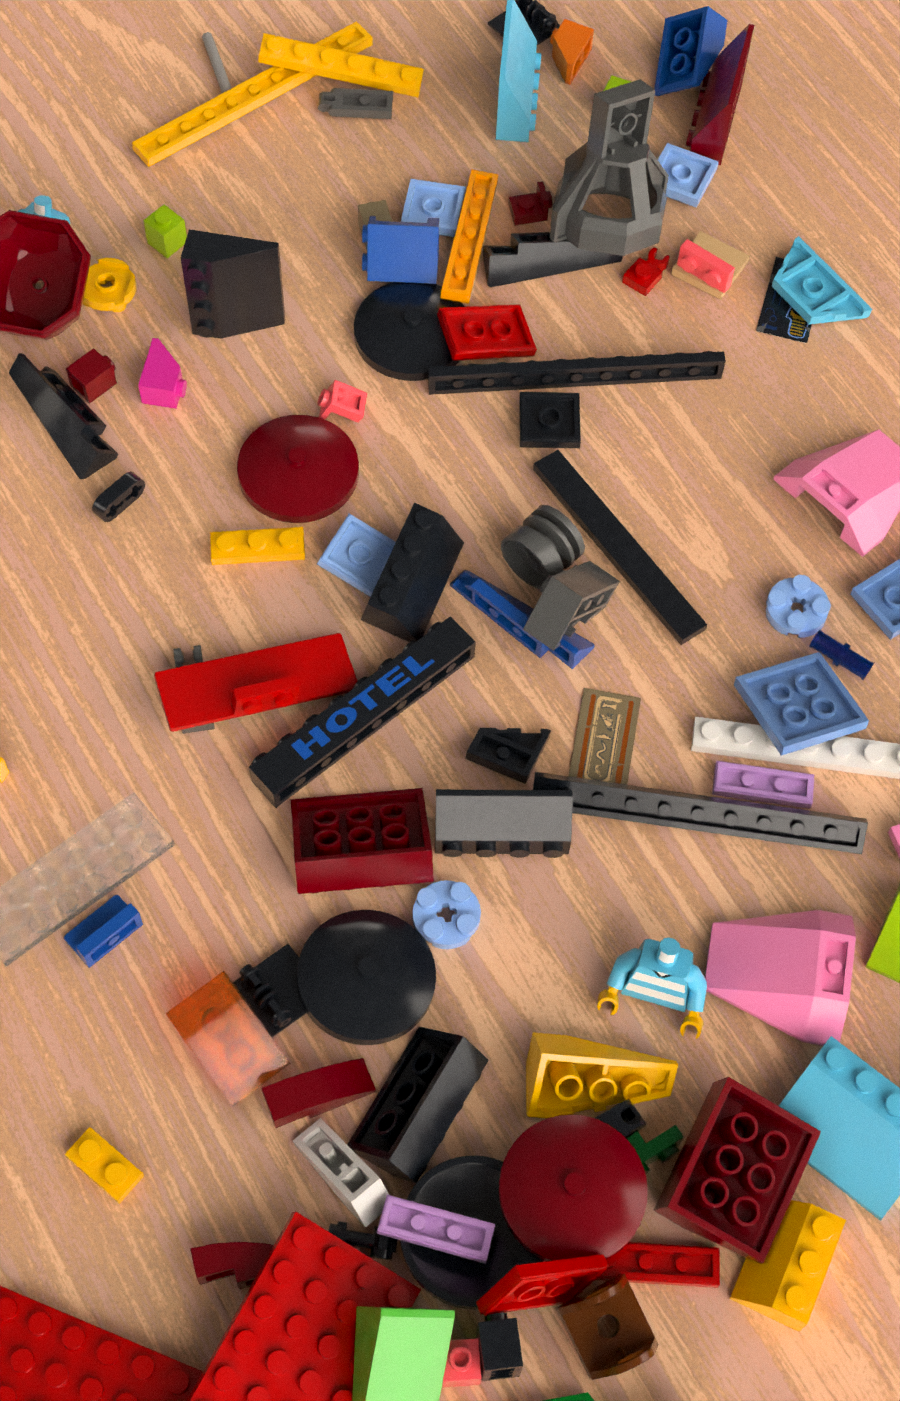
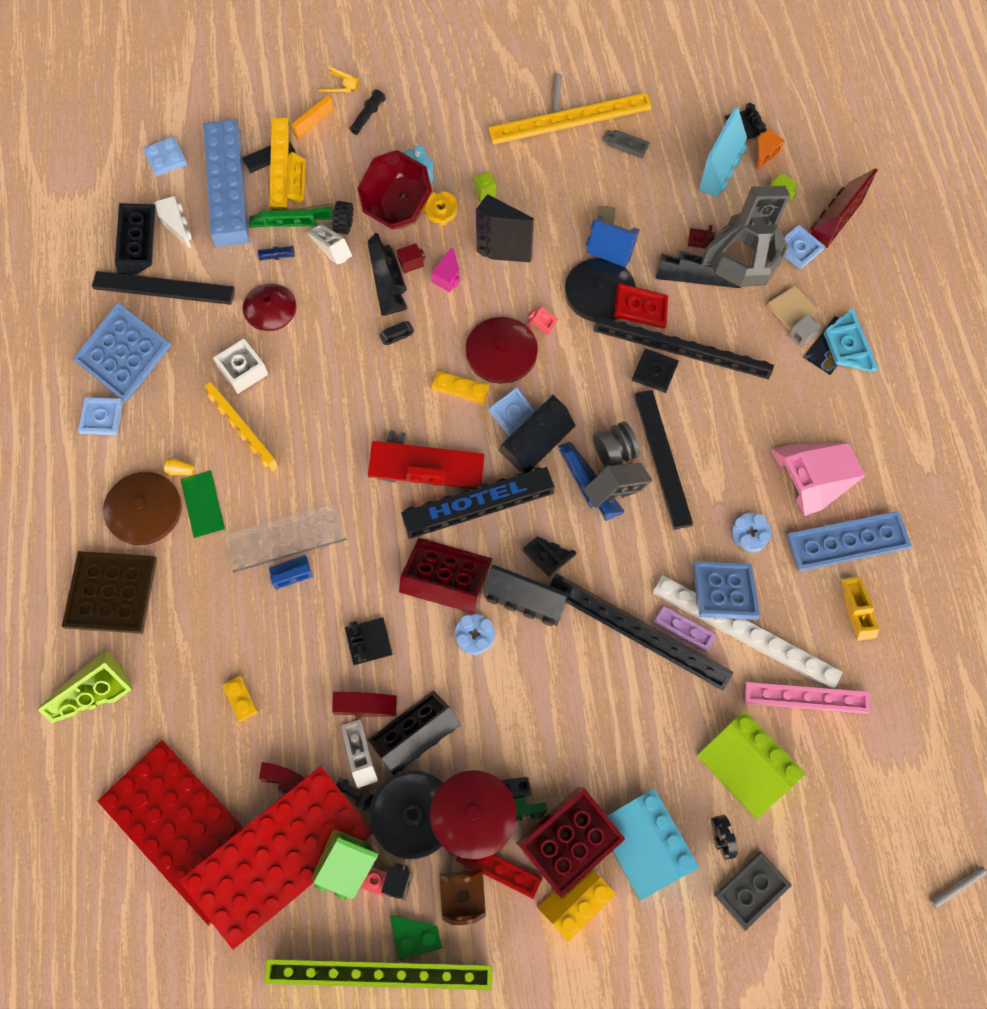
camera: 25 degrees right, 5 degrees up
(228, 1038) = (329, 656): clear orange slope -> none
(340, 65) = (626, 117): yellow plate -> none
(366, 977) = (416, 652): black dish -> none
(434, 200) = (644, 218): light blue plate -> none
(436, 1228) = (391, 805): lavender tile -> none
(469, 236) = (656, 245): light orange plate -> none
(542, 1284) = (432, 859): red tile -> none
(582, 1075) = (508, 752): yellow wedge -> none
(605, 736) = (606, 567): sticker -> none
(645, 274) = (750, 301): red plate -> none
(659, 975) = (574, 715): medium azure torso -> none
(689, 49) = (836, 170): blue slope -> none
(705, 266) = (786, 308): coral plate -> none
(743, 291) = (804, 331): none -> light grey brick
(786, 970) = (648, 740): bright pink wedge -> none
(841, 654) = (764, 570): clear blue pin -> none

